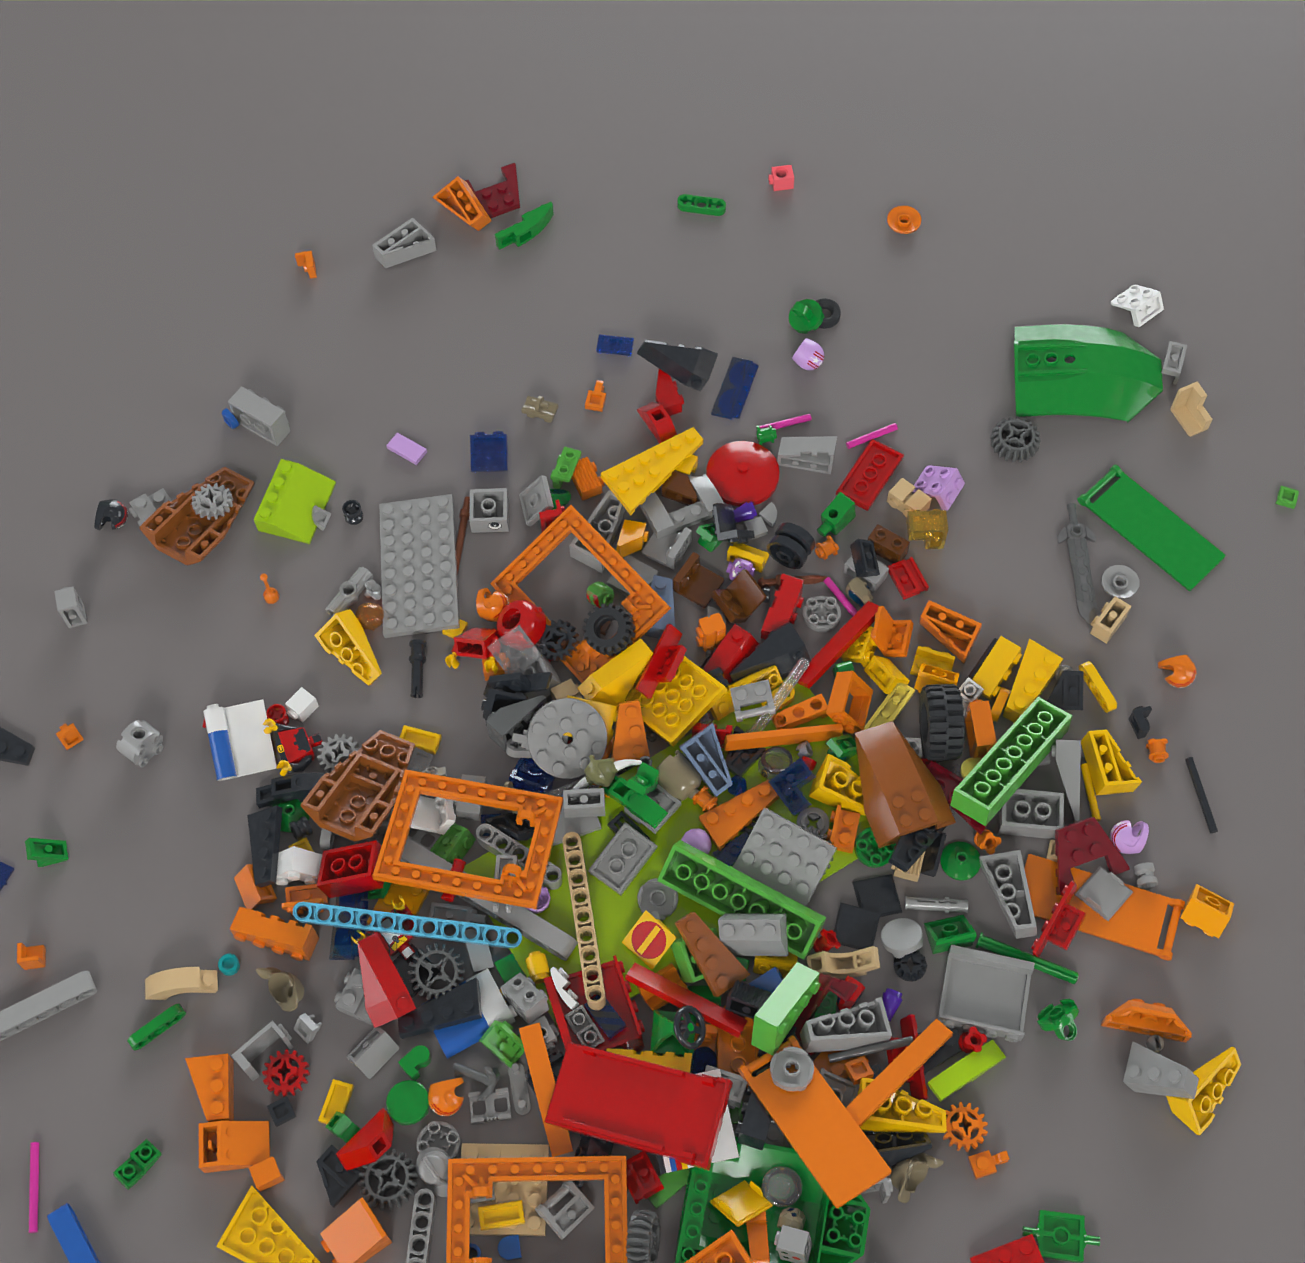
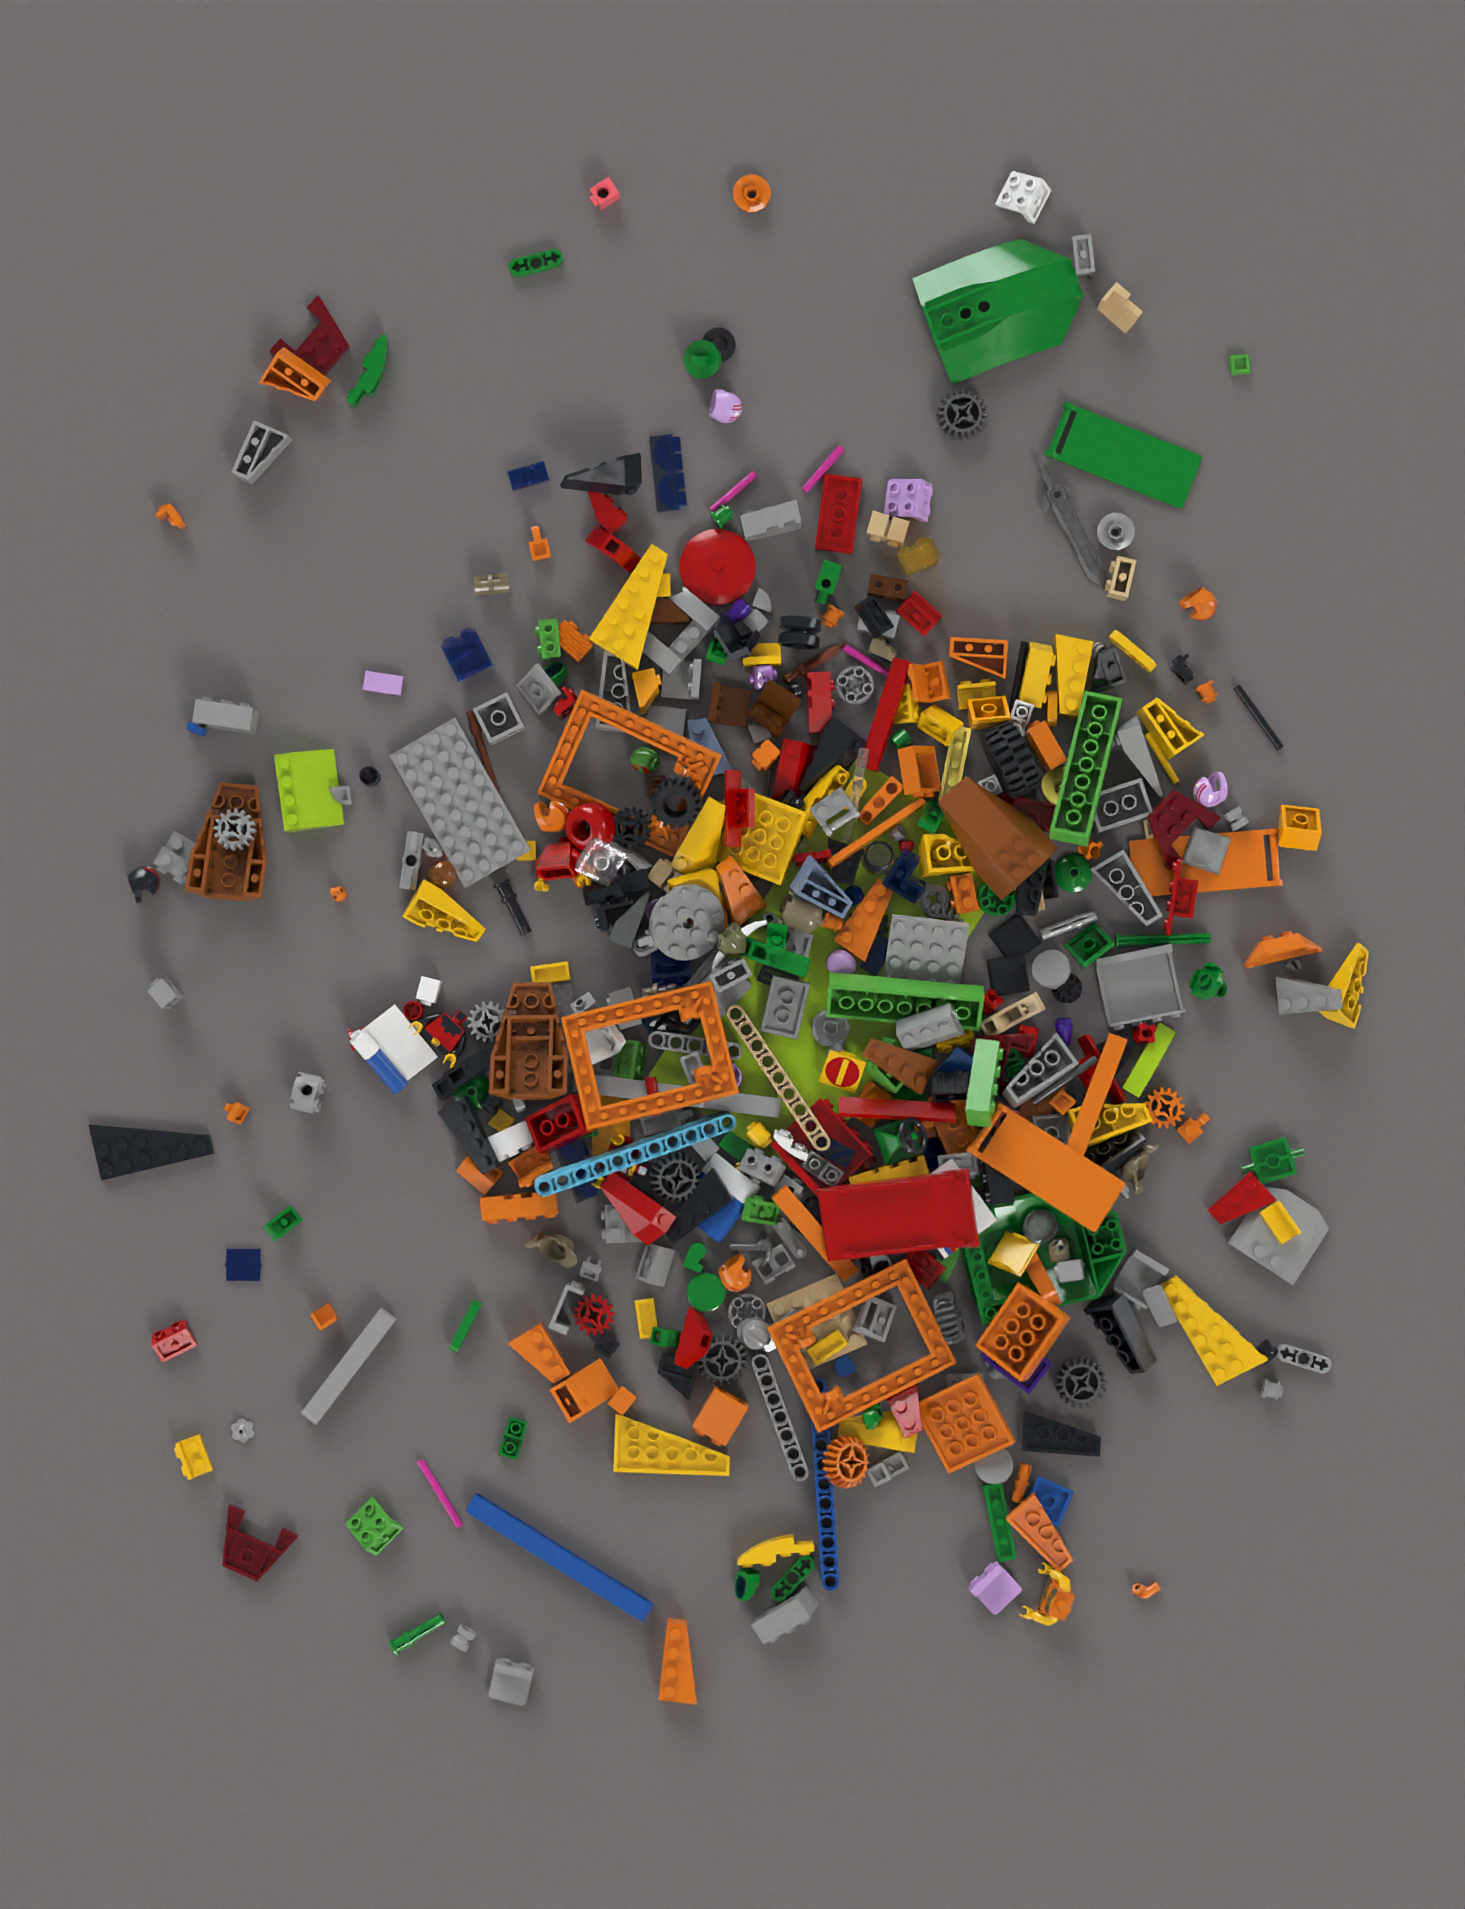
camera: 20 degrees left, 25 degrees up
(178, 981) = (465, 1282): tan arch -> none
(229, 964) = (494, 1246): teal tile -> none
(792, 1081) = (1017, 1124): light grey plate -> none

